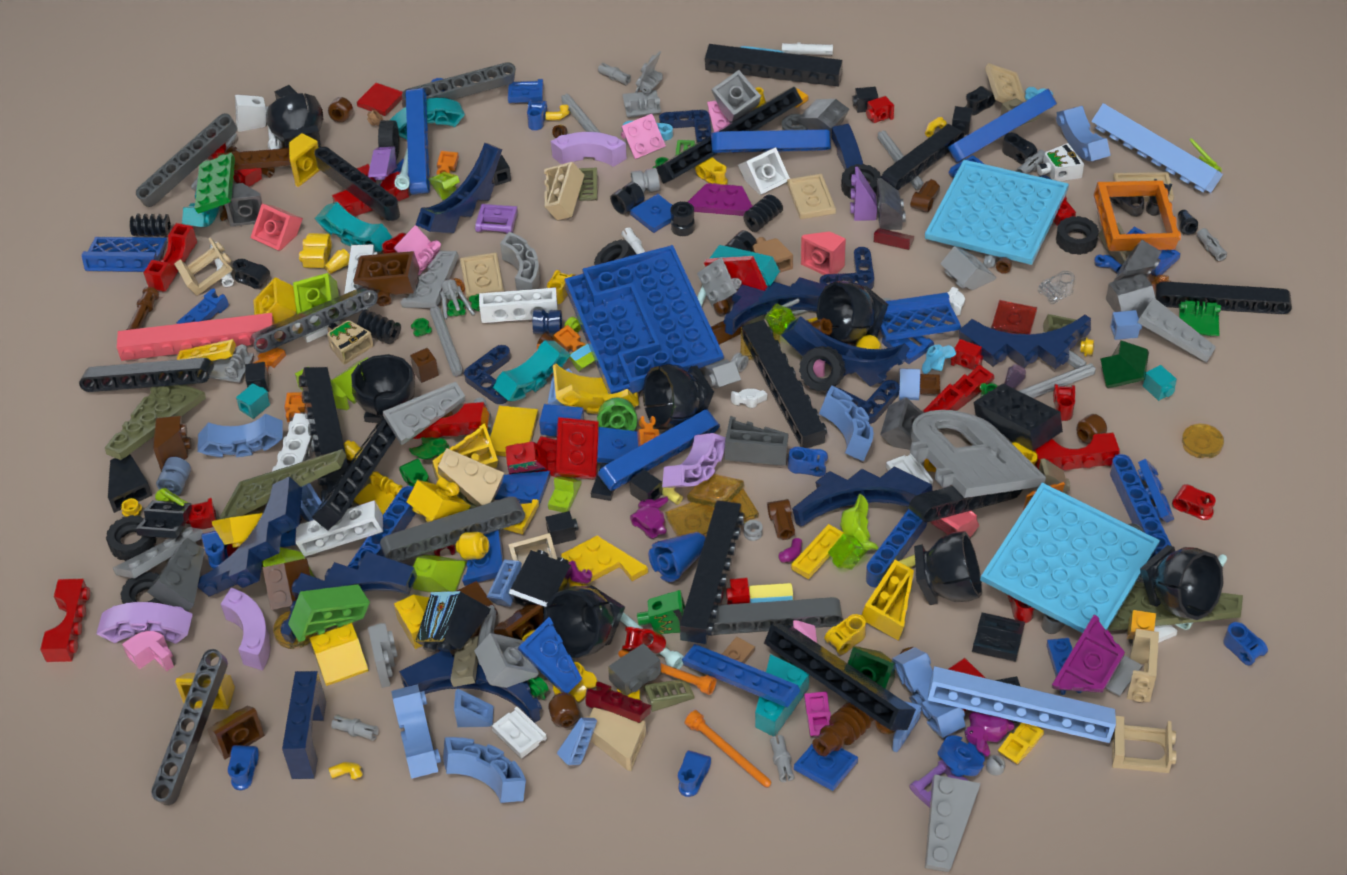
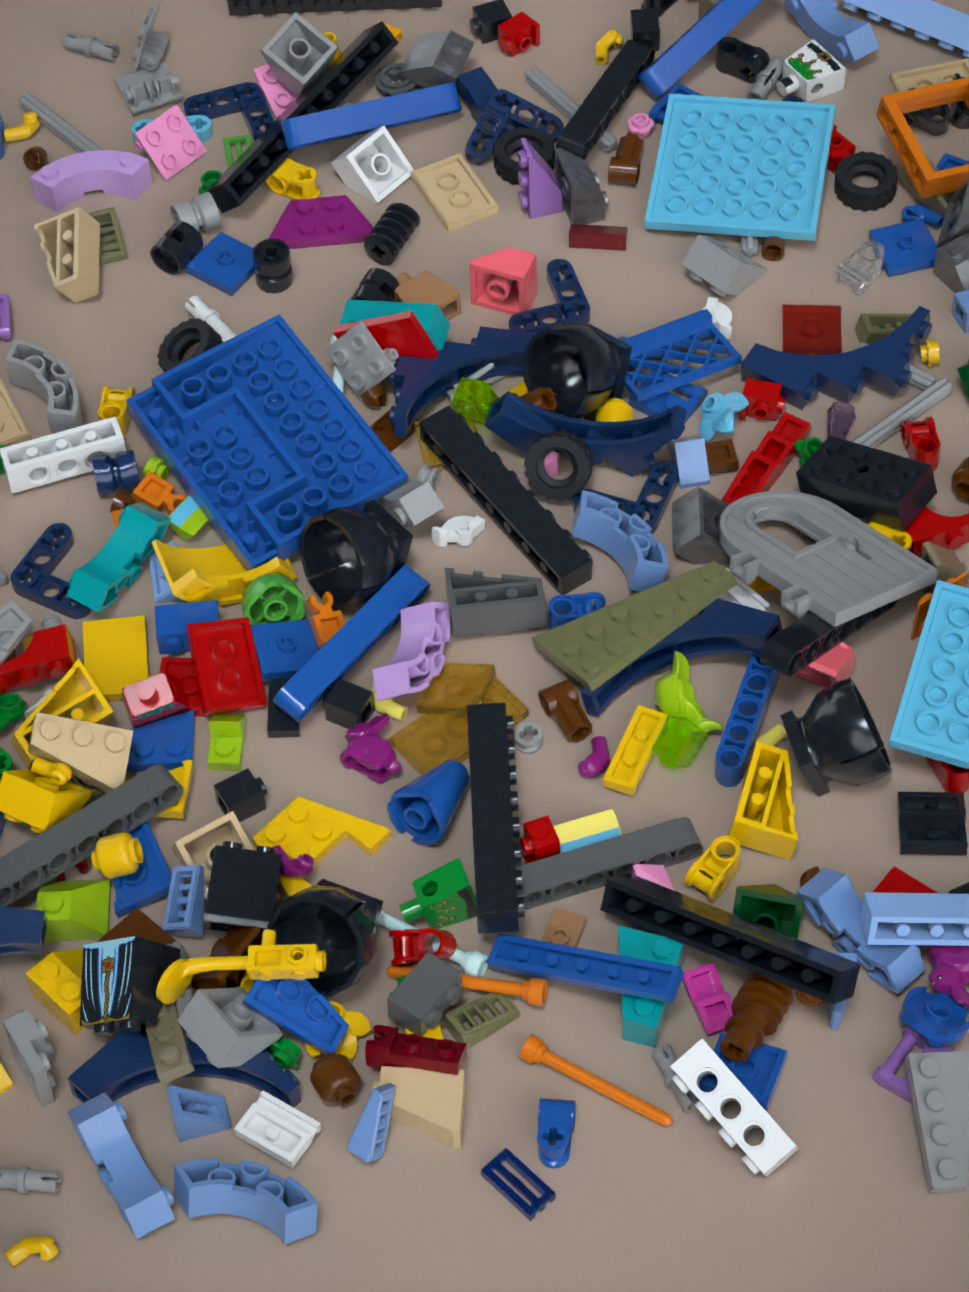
camera: 15 degrees left, 5 degrees up
(535, 625) = (262, 963): none -> yellow piece
(667, 815) = (538, 1204): none -> clear blue tile
(824, 477) = (616, 635): none -> olive wing
(830, 813) = (701, 1061): none -> white brick
(853, 155) = (501, 116): none -> dark blue beam
(941, 176) = (640, 125): none -> bright pink plate
(1091, 279) = (906, 247): none -> blue plate

